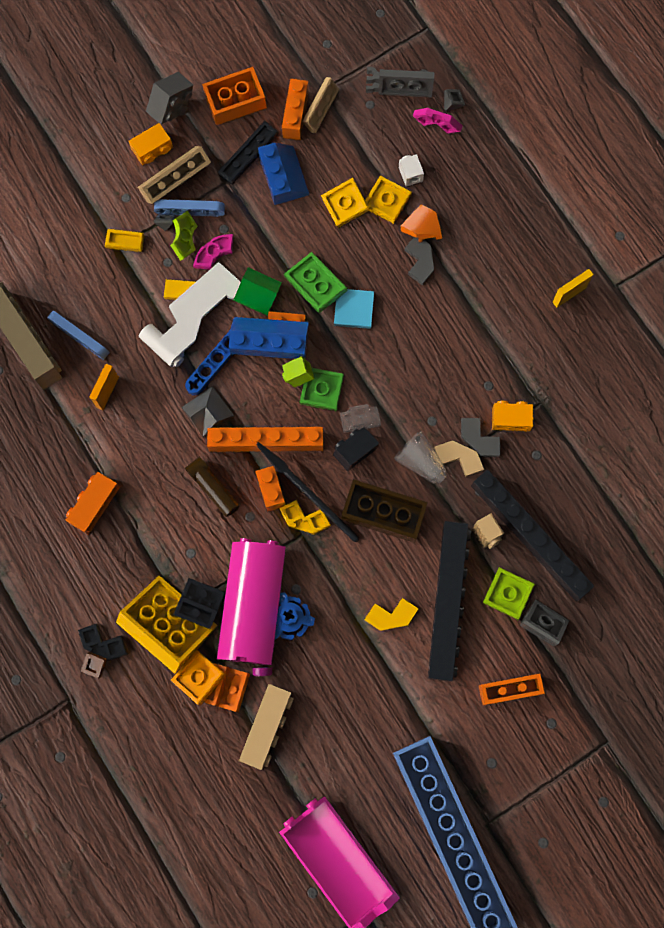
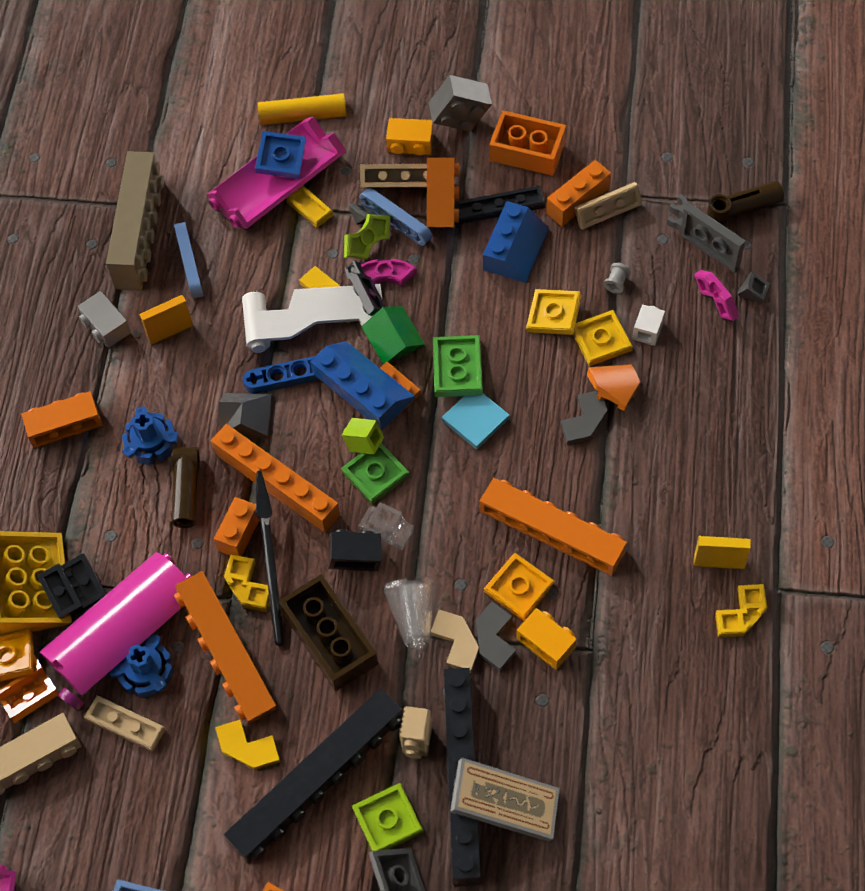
camera: 40 degrees right, 15 degrees down
(58, 416) = (103, 319): none -> light grey brick
(59, 174) = (301, 108): none -> yellow brick
(77, 217) = (280, 155): none -> blue plate
(83, 233) = (251, 195): none -> dark pink cylinder
(151, 464) = (148, 434): none -> blue piece
(211, 170) = (442, 192): none -> orange brick
(215, 273) = (364, 288): none -> black hinge
(306, 659) = (124, 723): none -> tan tile
(332, 568) = (225, 648): none -> orange brick
(365, 152) = (617, 277): none -> light grey bush
(403, 43) = (726, 207): none -> dark brown piece
(459, 344) = (553, 526): none -> orange brick
(468, 396) = (519, 586): none -> light orange tile
(570, 531) = (505, 799): none -> tile
(609, 307) = (739, 621): none -> yellow tile

